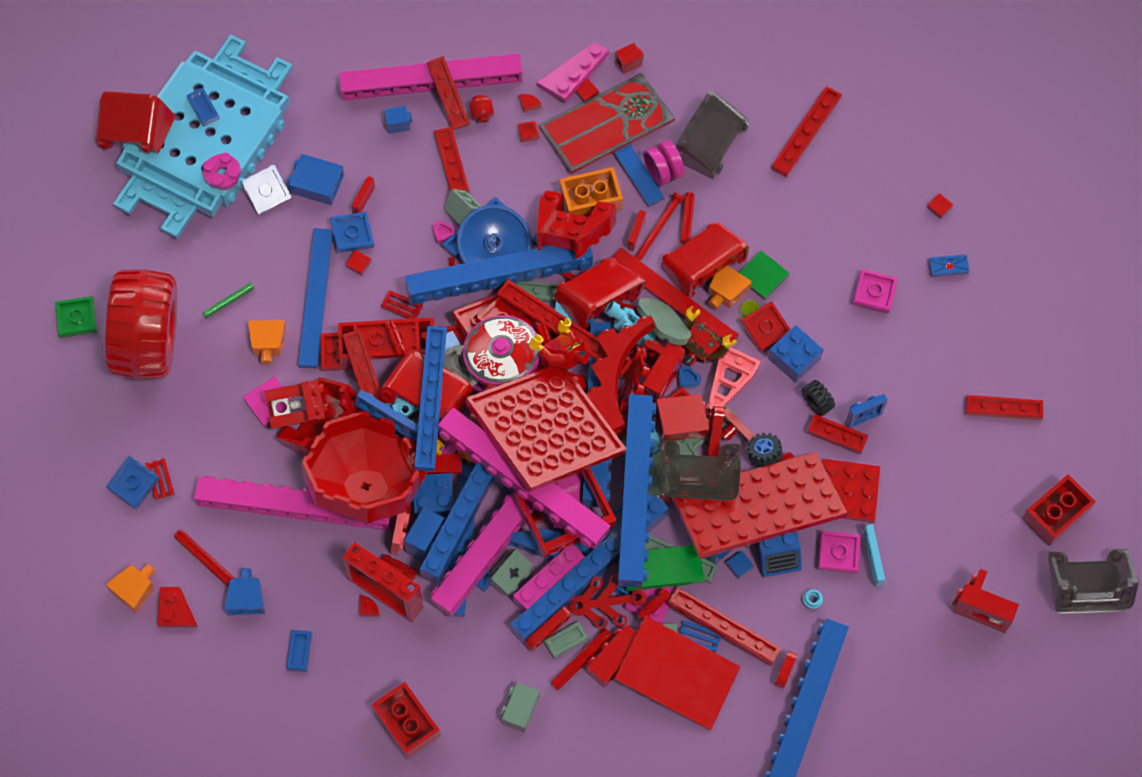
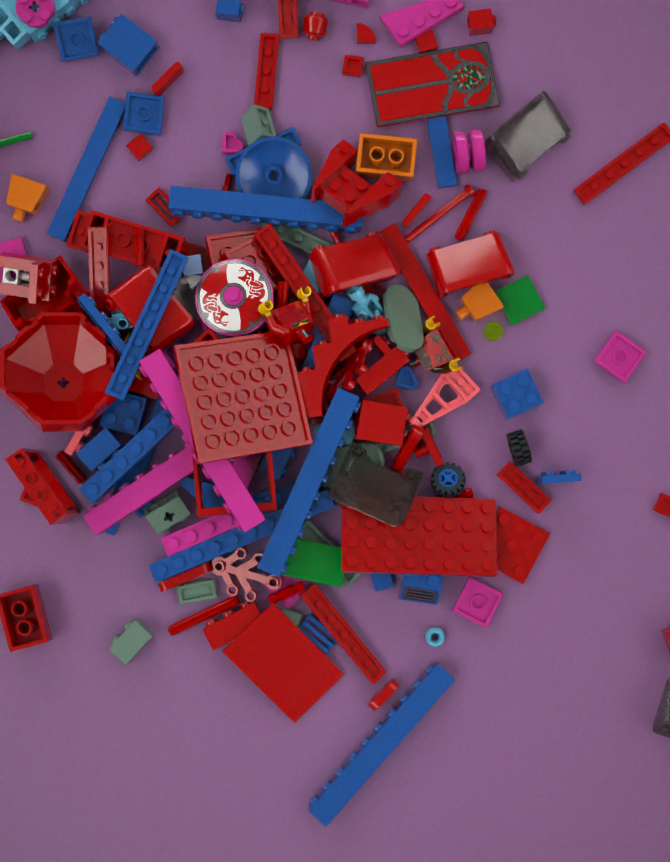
camera: 20 degrees right, 20 degrees up
(765, 326) = (500, 355): red tile -> none
(874, 556) = (507, 618): medium azure tile -> none
(984, 606) = (579, 699): red brick -> none

